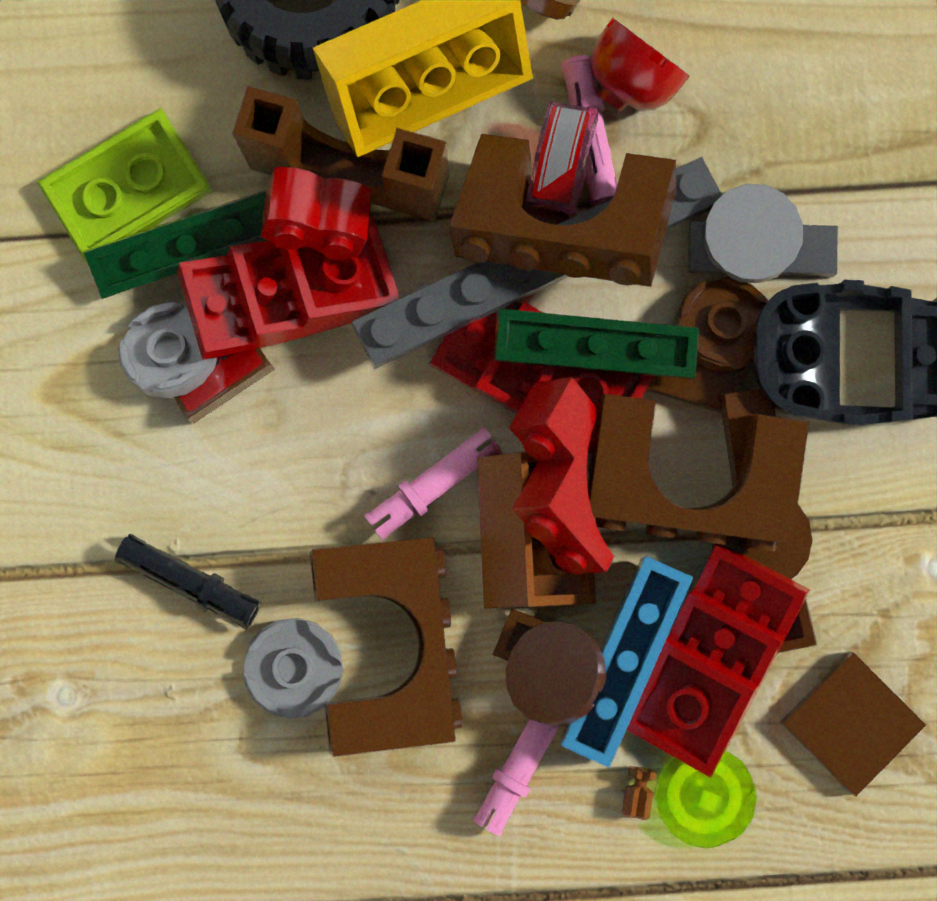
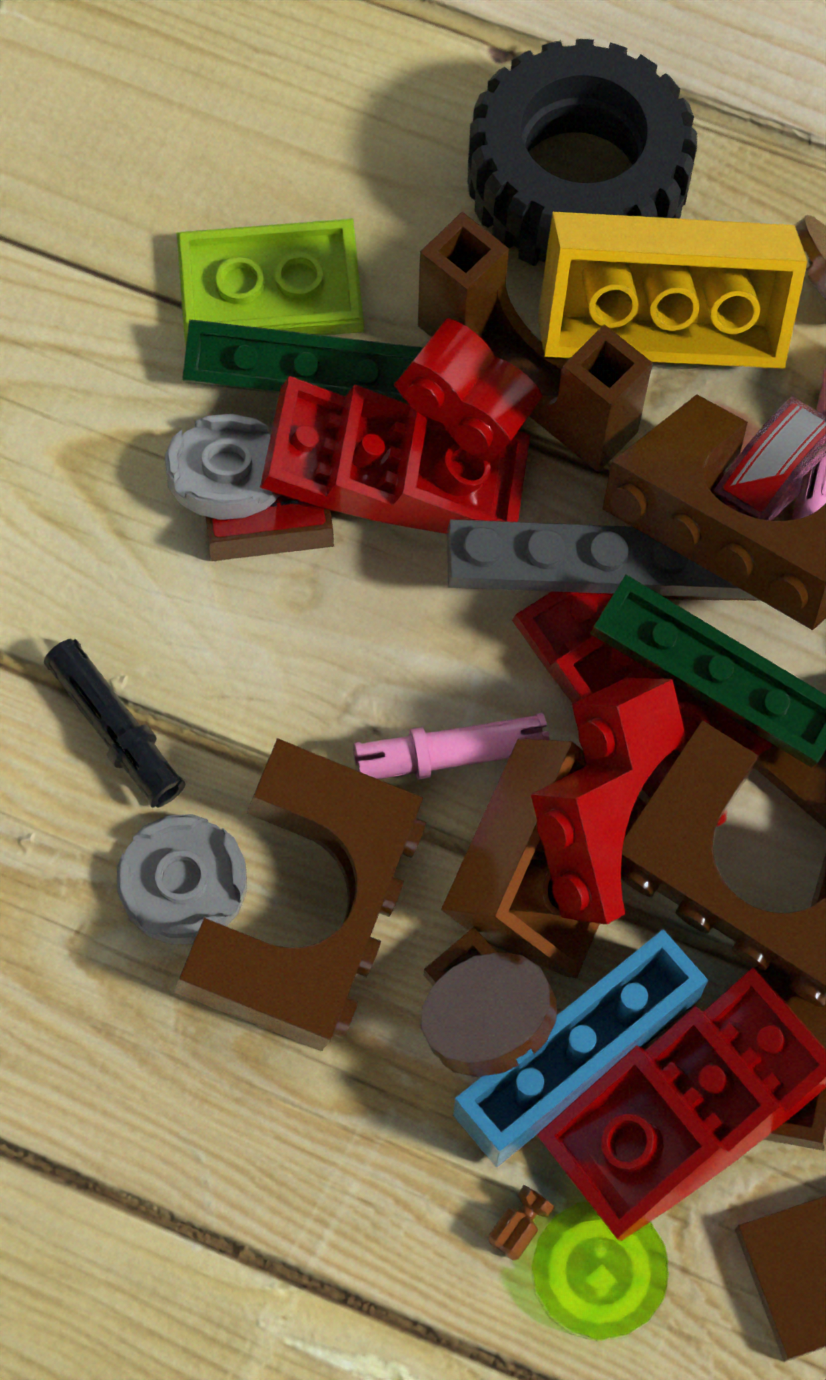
camera: 20 degrees right, 15 degrees down
(514, 777) = (377, 1128): bright pink pin -> none

